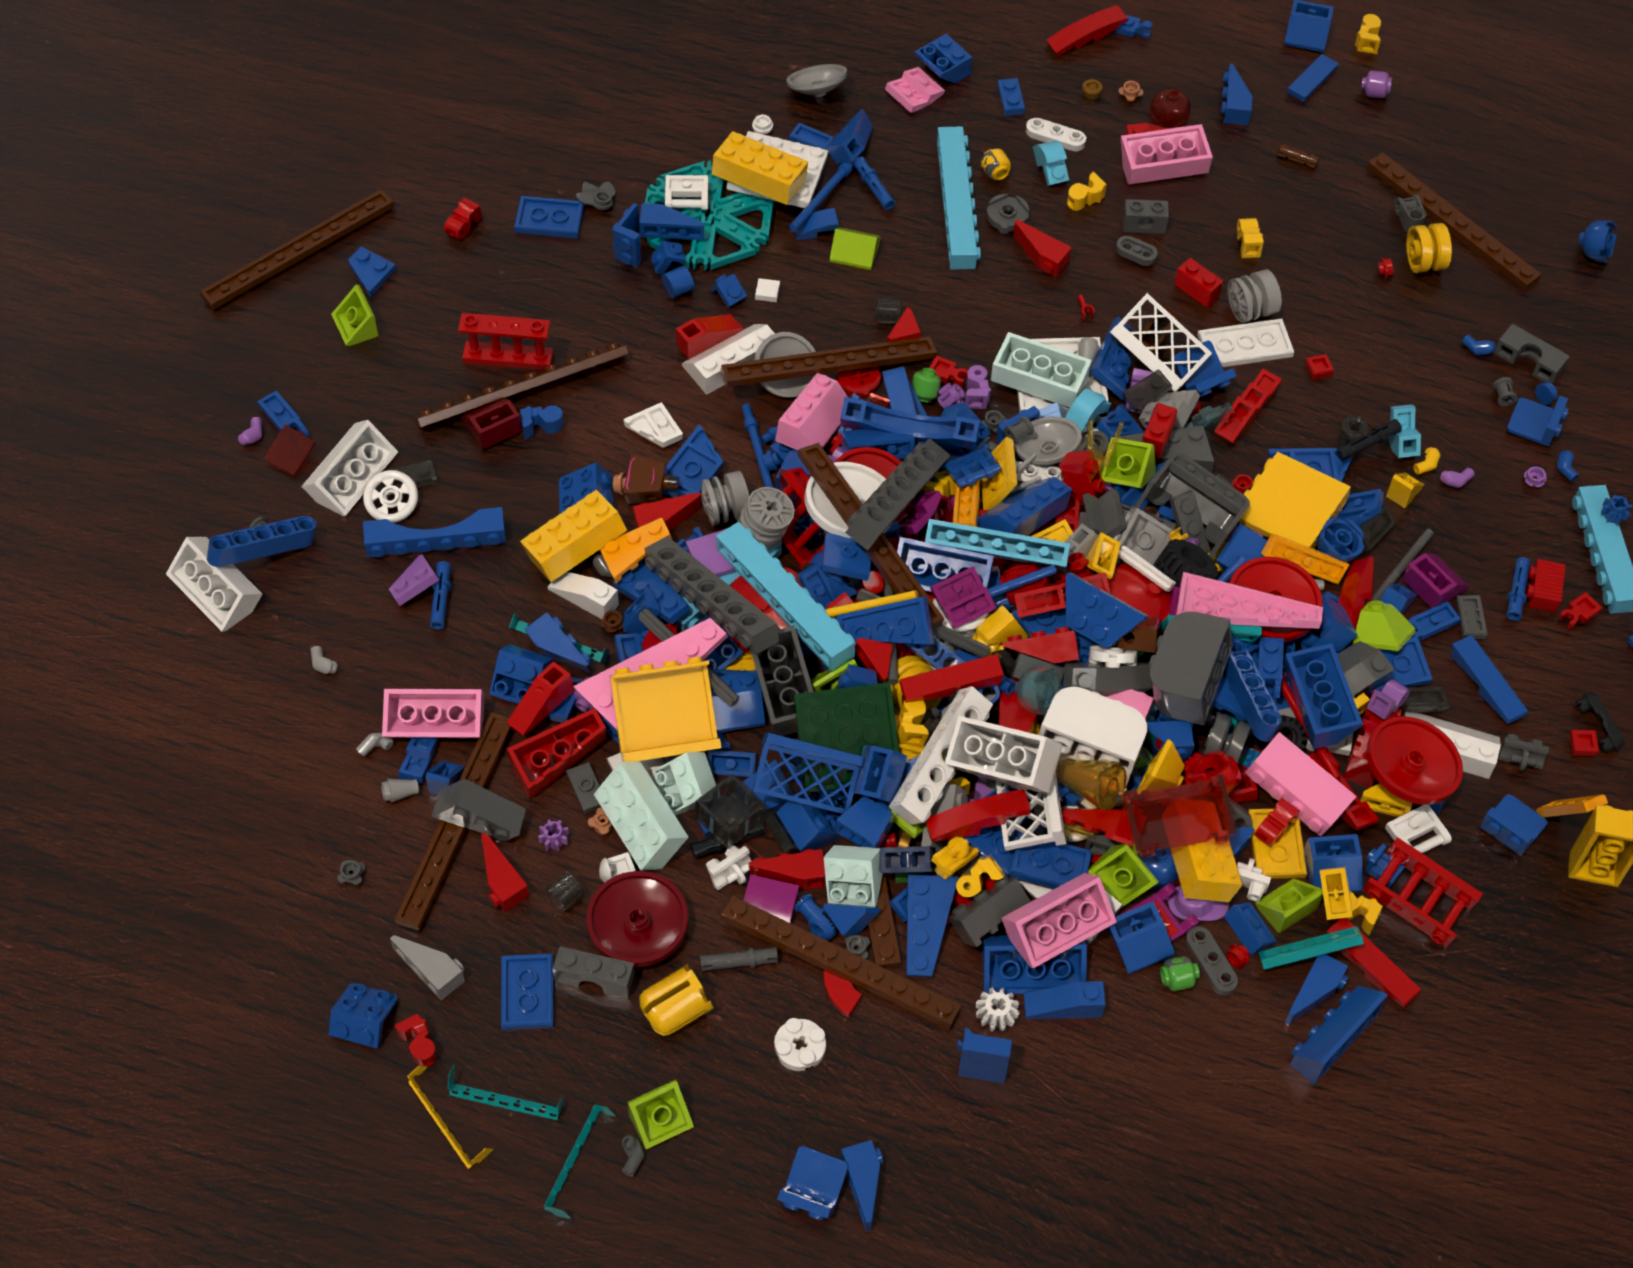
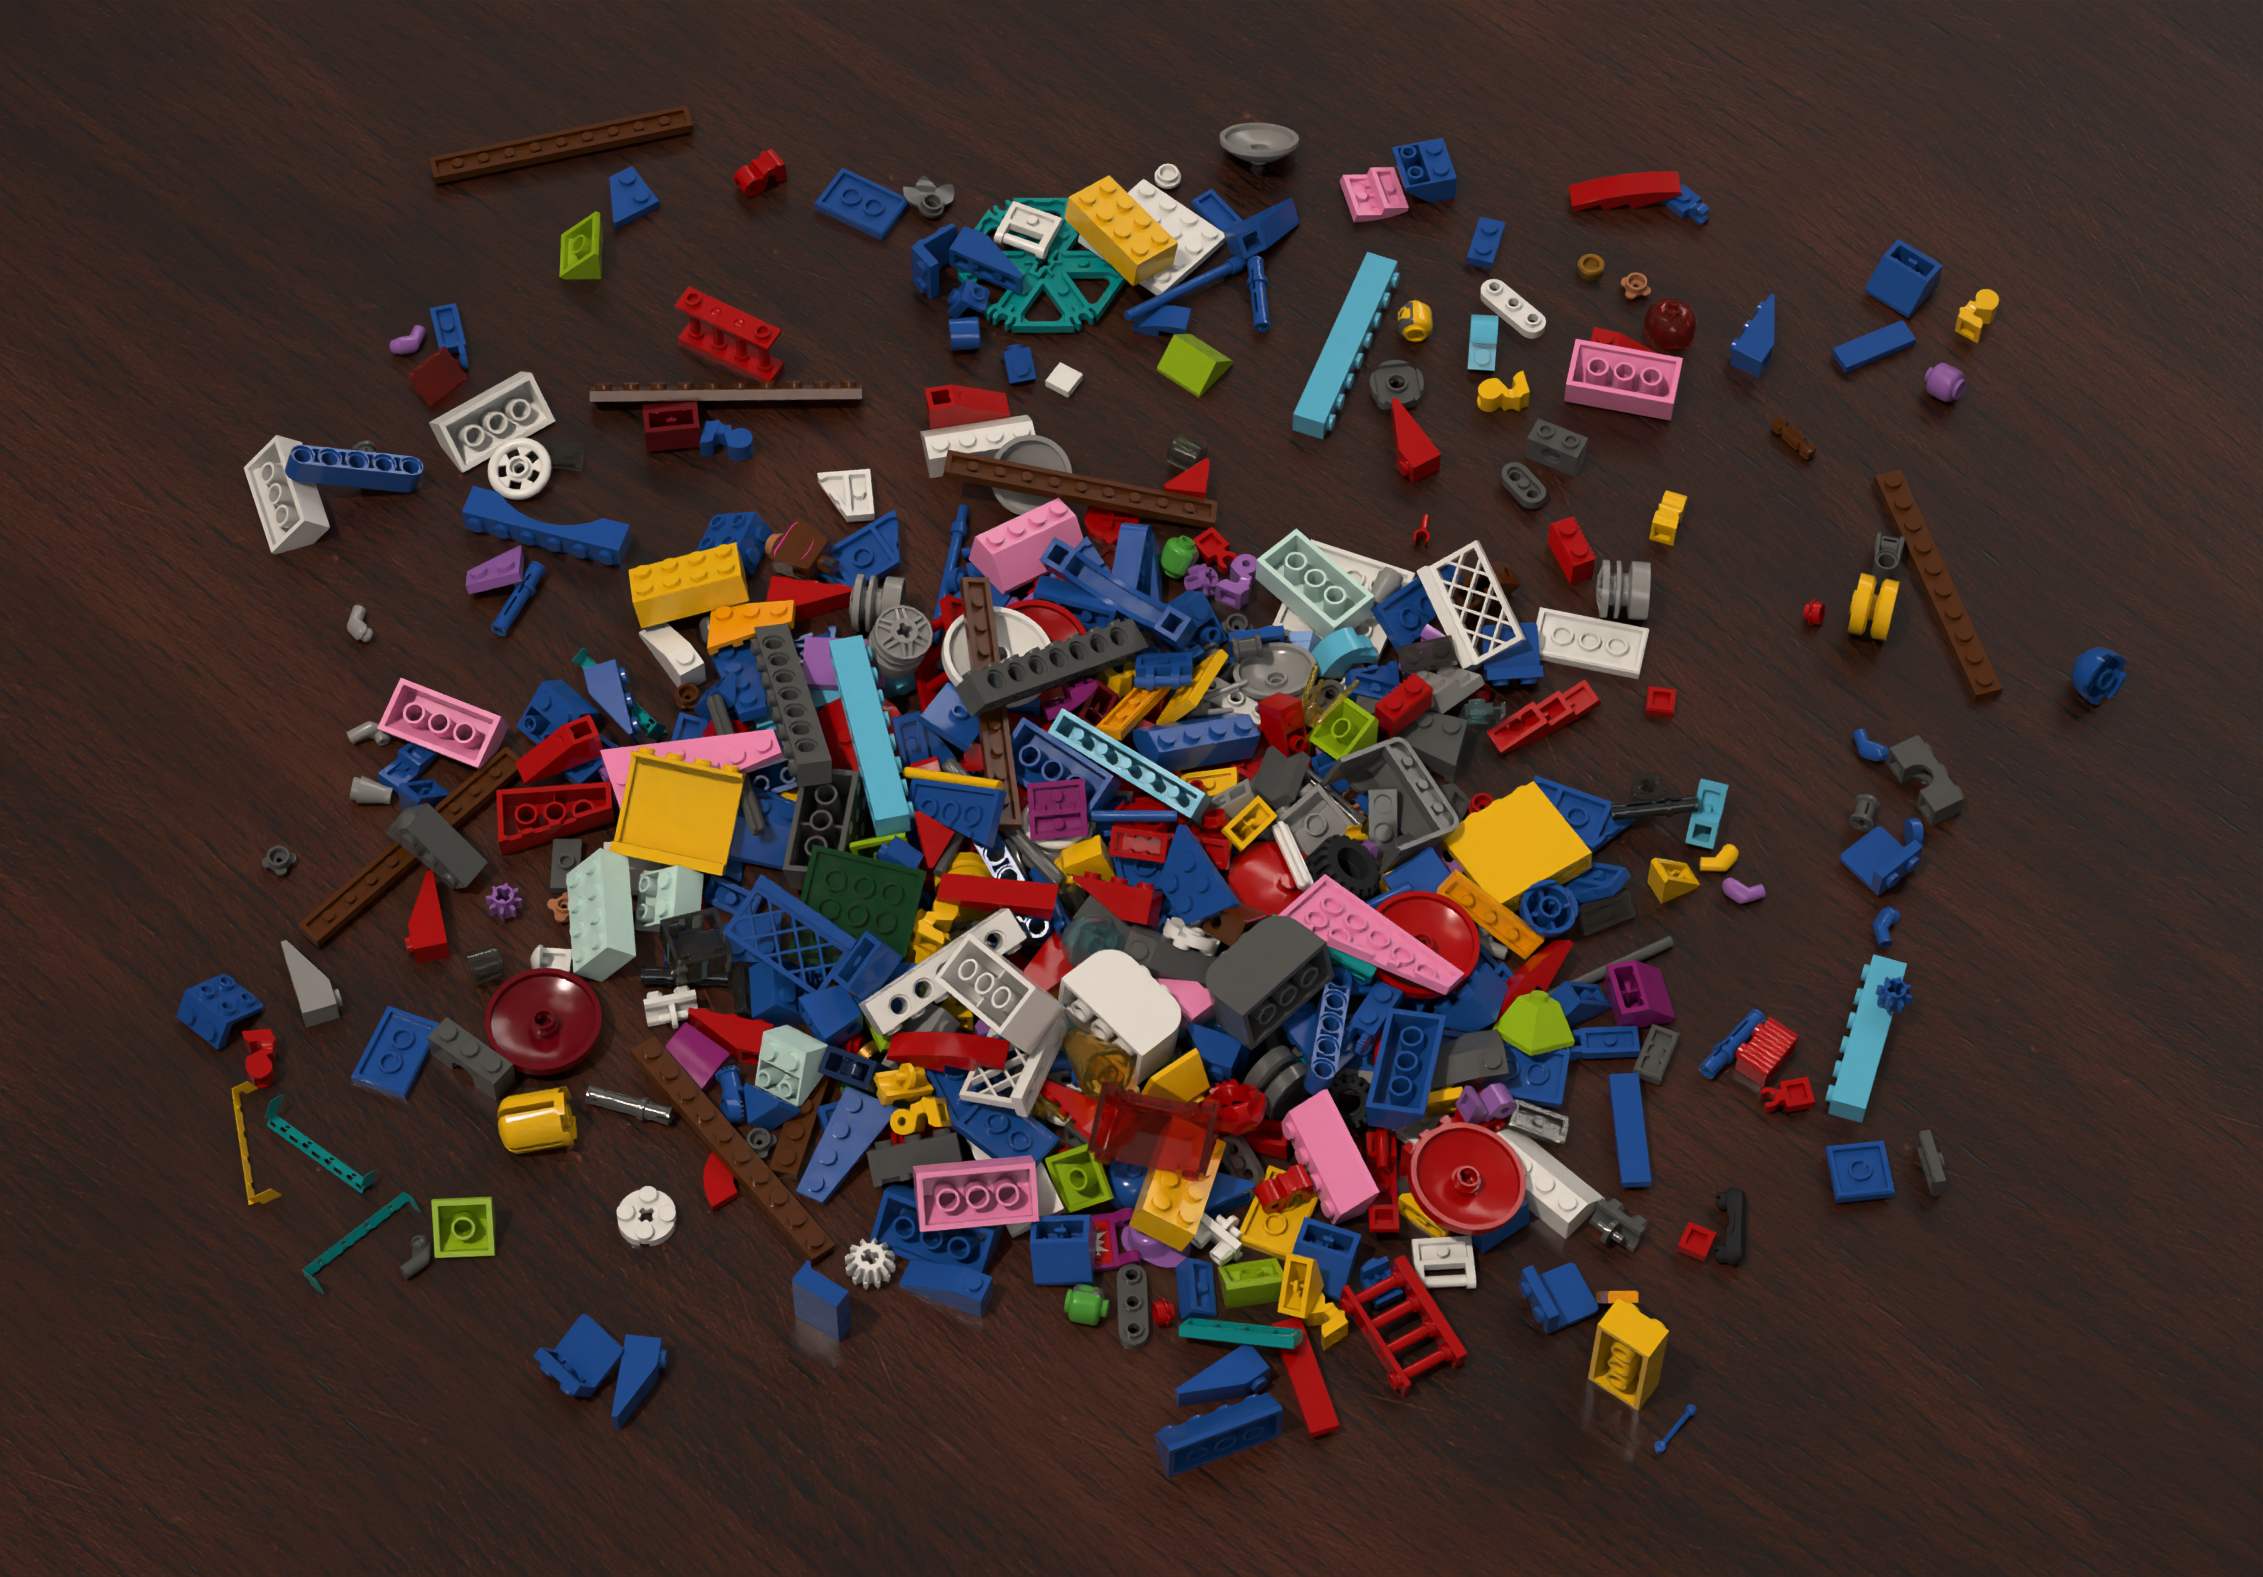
camera: 25 degrees right, 0 degrees up
(1537, 473) = (1839, 919): medium lavender plate -> none

